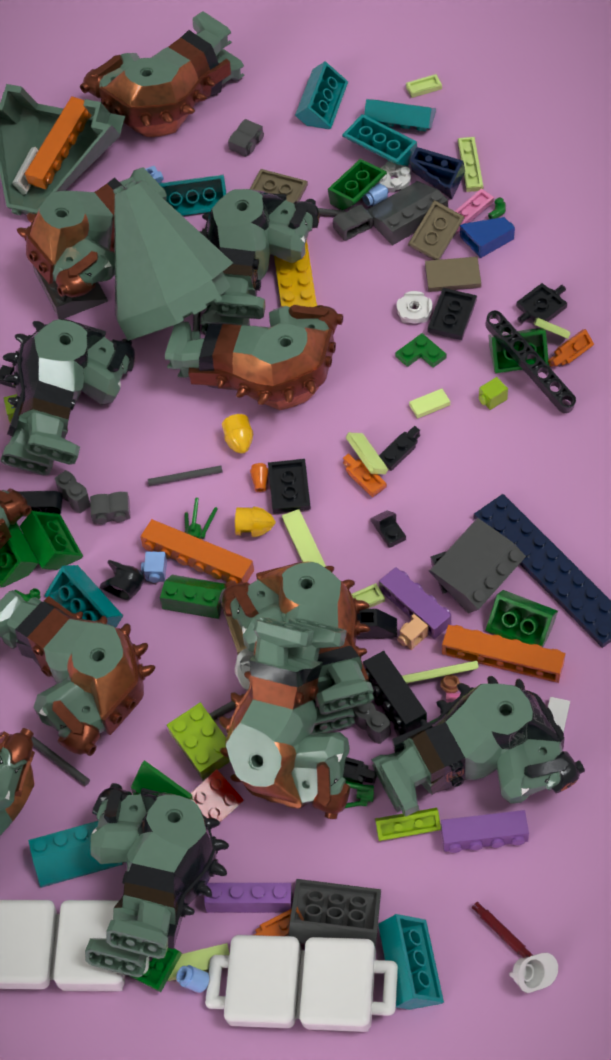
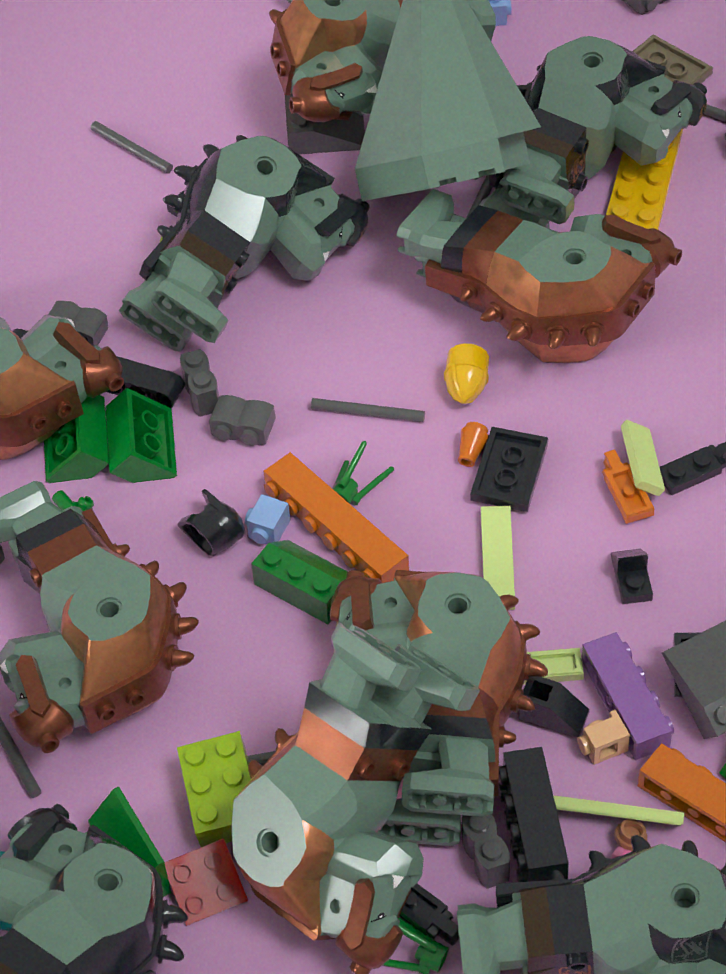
camera: 20 degrees right, 5 degrees down
(79, 593) = (143, 520): teal slope -> none
(195, 194) = (528, 39): teal slope -> none
(253, 520) = (433, 499): yellow helmet -> none

